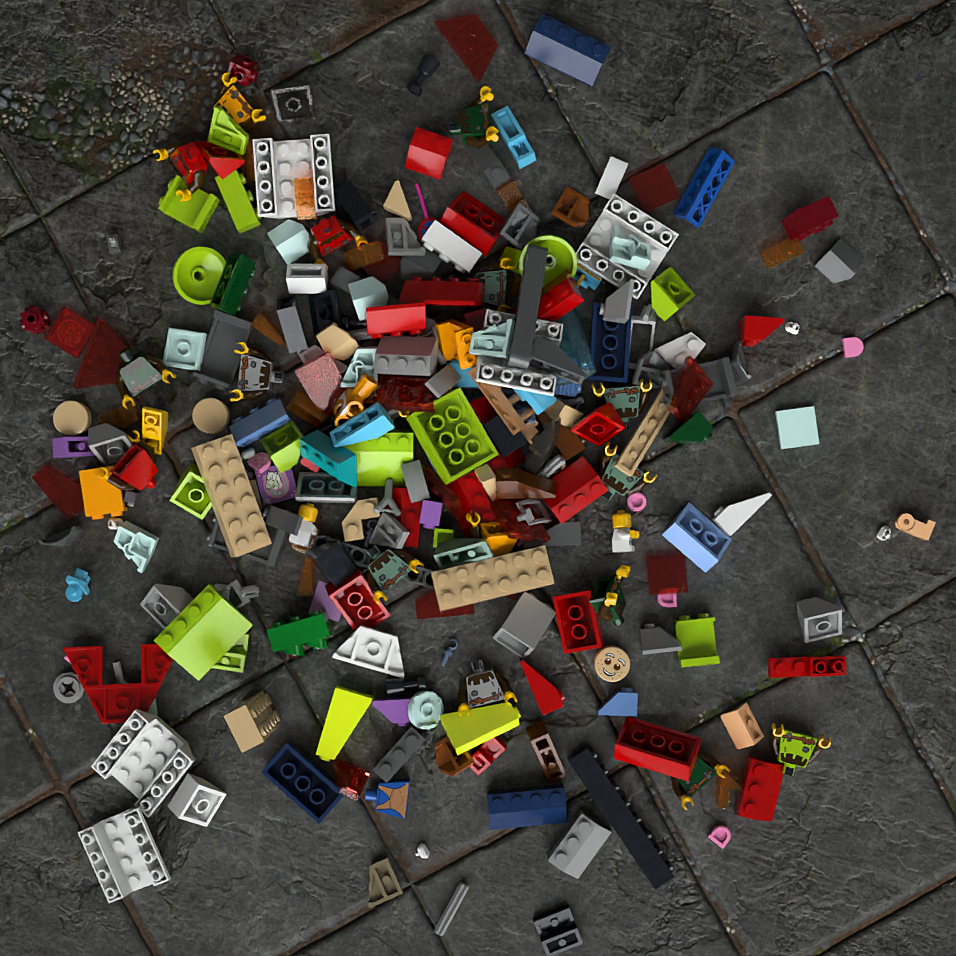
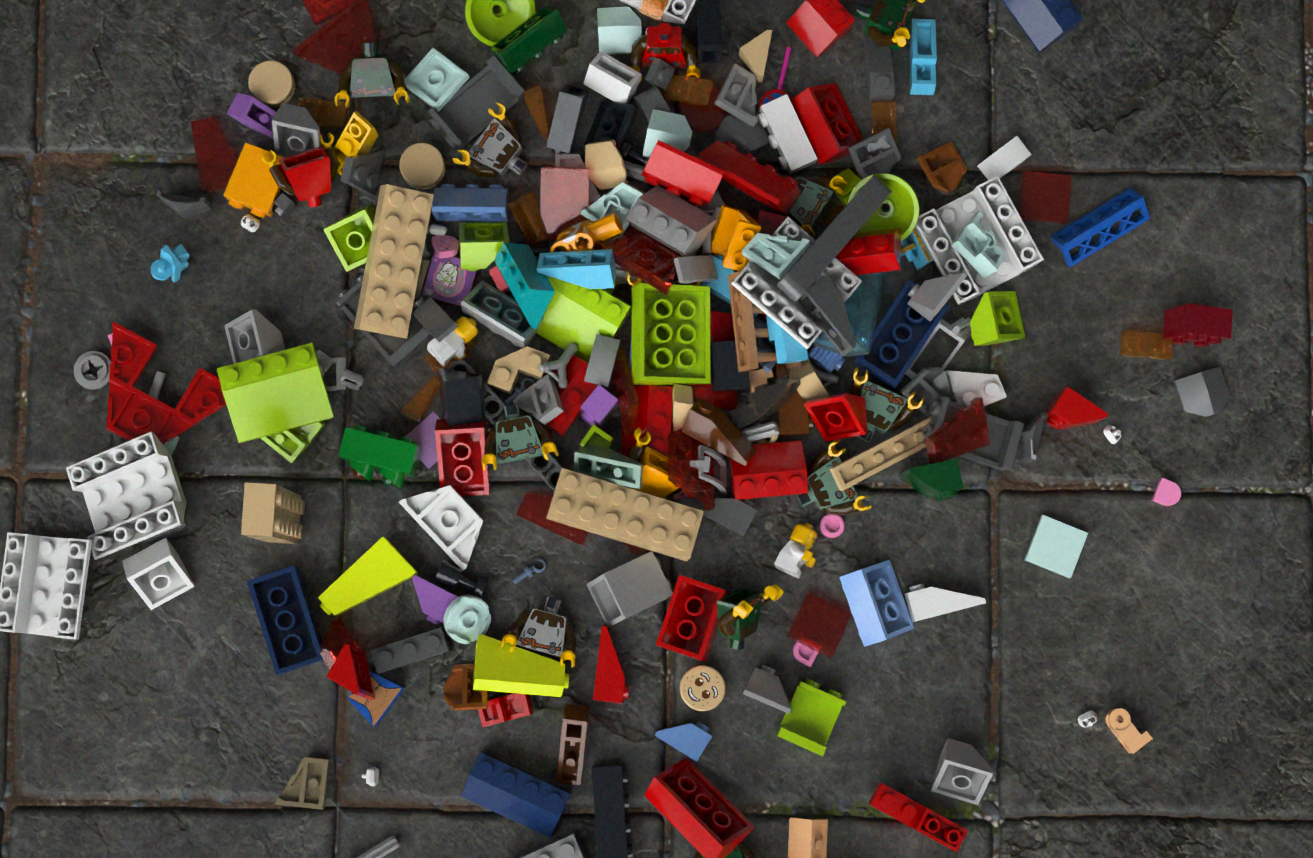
camera: 25 degrees right, 5 degrees down
(136, 544) = (259, 257): light aqua slope -> none
(172, 443) = (363, 171): none -> dark grey wing
(338, 255) = (660, 74): none -> dark grey plate
(370, 793) = (352, 672): none -> red slope

